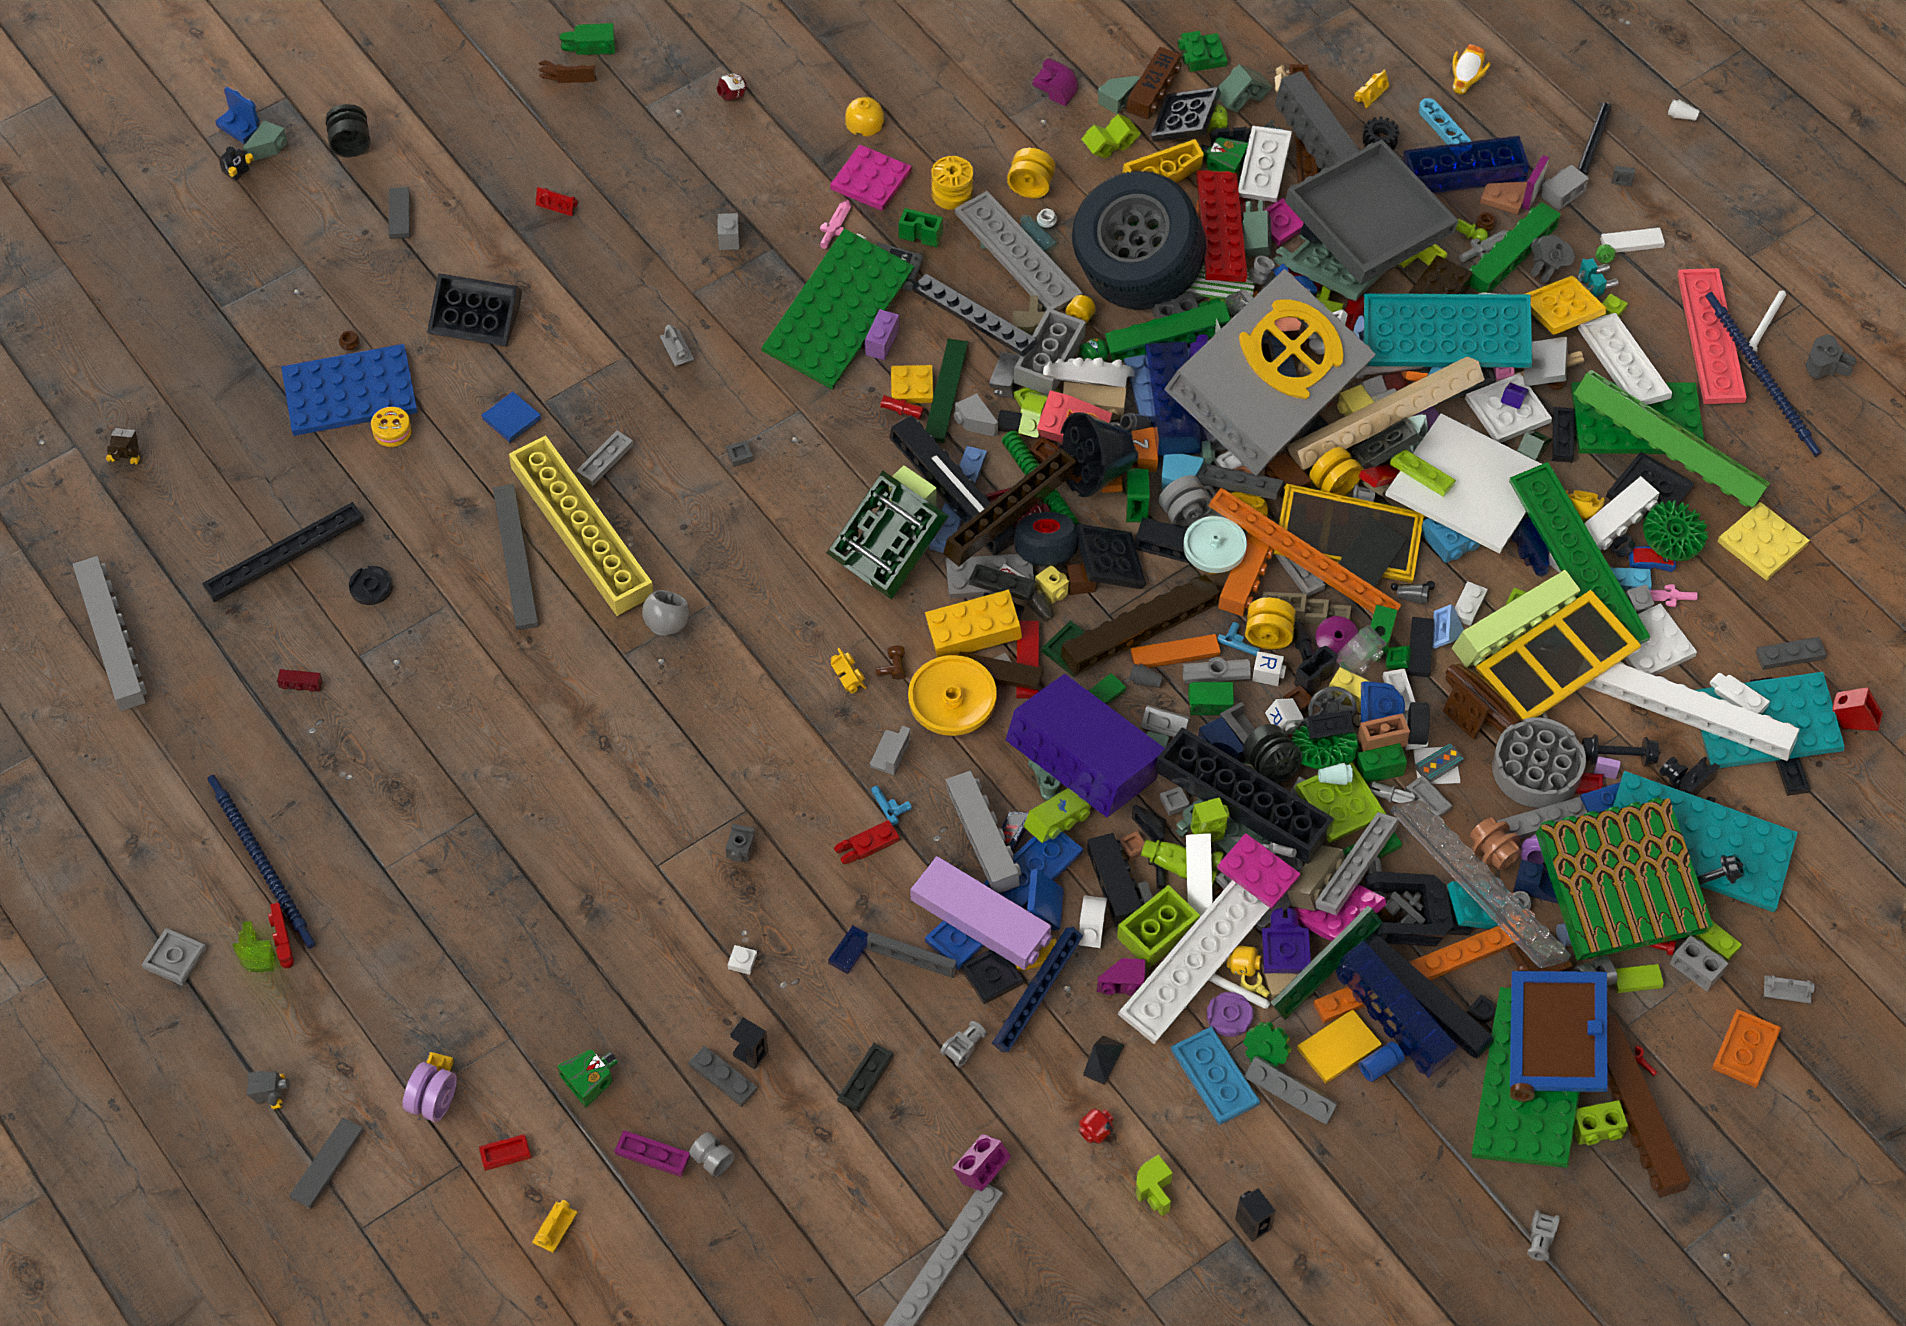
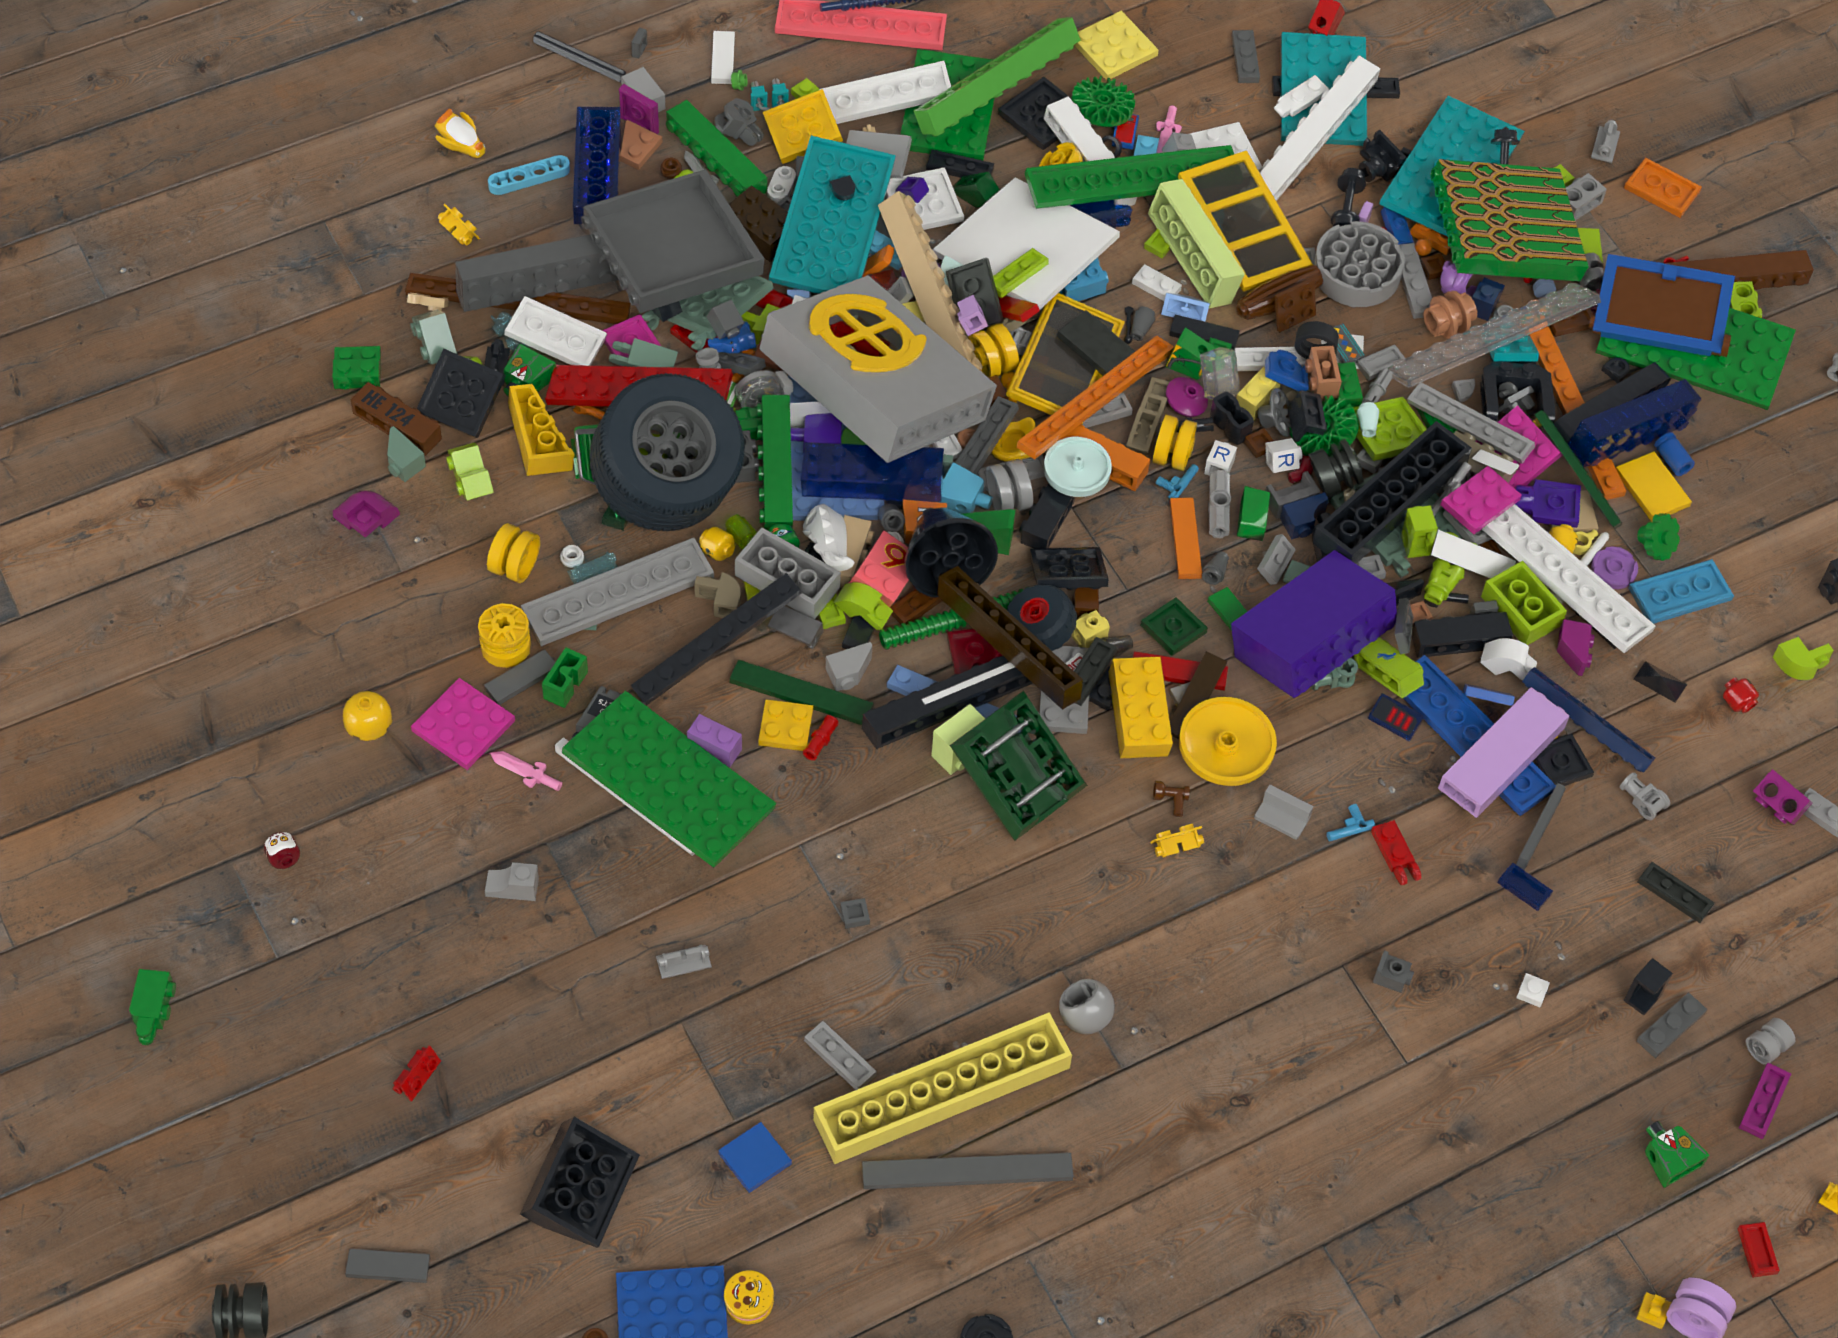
camera: 85 degrees left, 0 degrees up
(566, 74) = (194, 1054): reddish brown arm -> none
(915, 200) = (520, 677): none -> dark grey tile
(983, 833) = (1403, 737): light grey brick -> none
(1098, 324) = (740, 529): none -> clear neon green brick
(1099, 817) = (1404, 626): none -> dark grey tile
(1139, 624) = (1157, 558): dark brown brick -> none
(1291, 1090) = (1702, 530): dark grey plate -> none
(1298, 262) = (725, 320): none -> dark grey brick
(1305, 879) = (1495, 462): none -> white sticker
(1357, 439) = (971, 315): none -> lavender brick
(1381, 126) = (524, 221): black tyre -> none
(1414, 867) = (1463, 389): none -> light grey tile
(1477, 327) = (843, 188): none -> black tile

